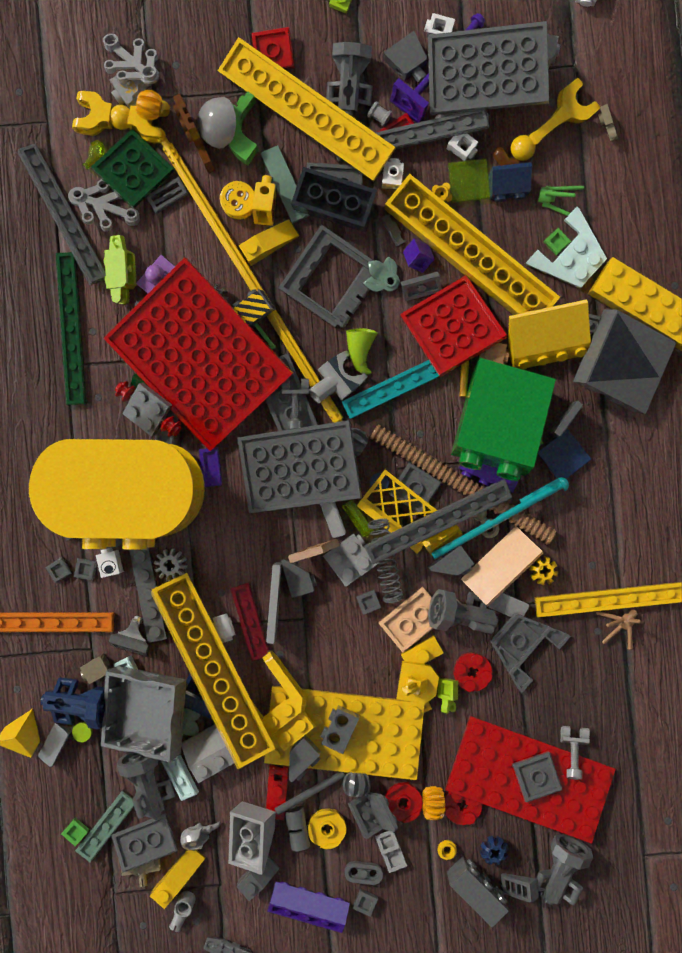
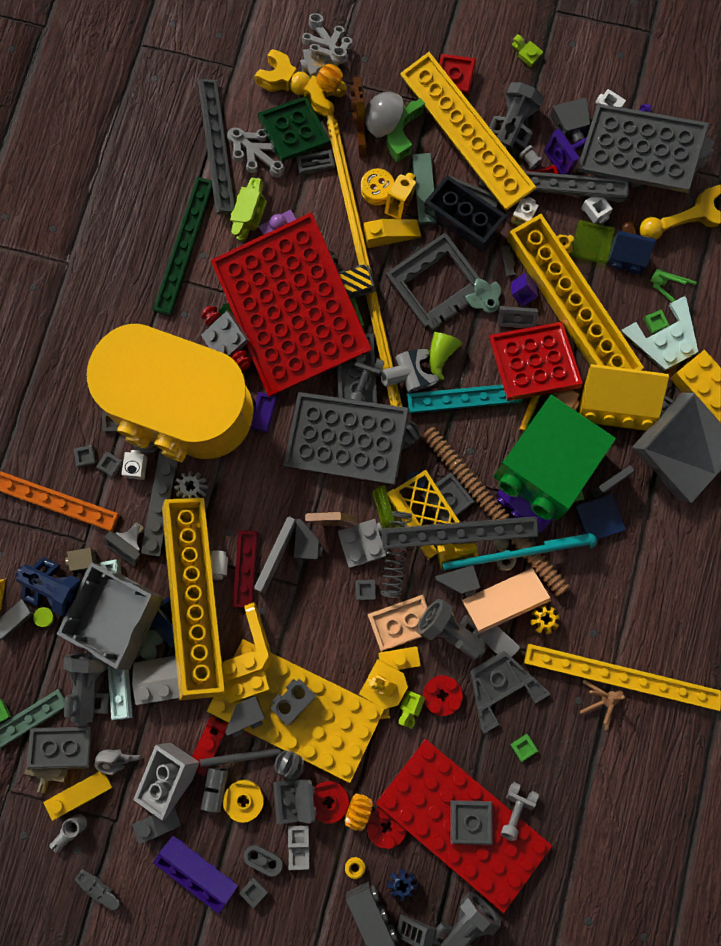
camera: 15 degrees right, 10 degrees down
(95, 152) = (266, 103): clear neon green animal -> none
(333, 519) = (360, 499): light grey slope -> none
(562, 691) = (524, 747): none -> bright green tile

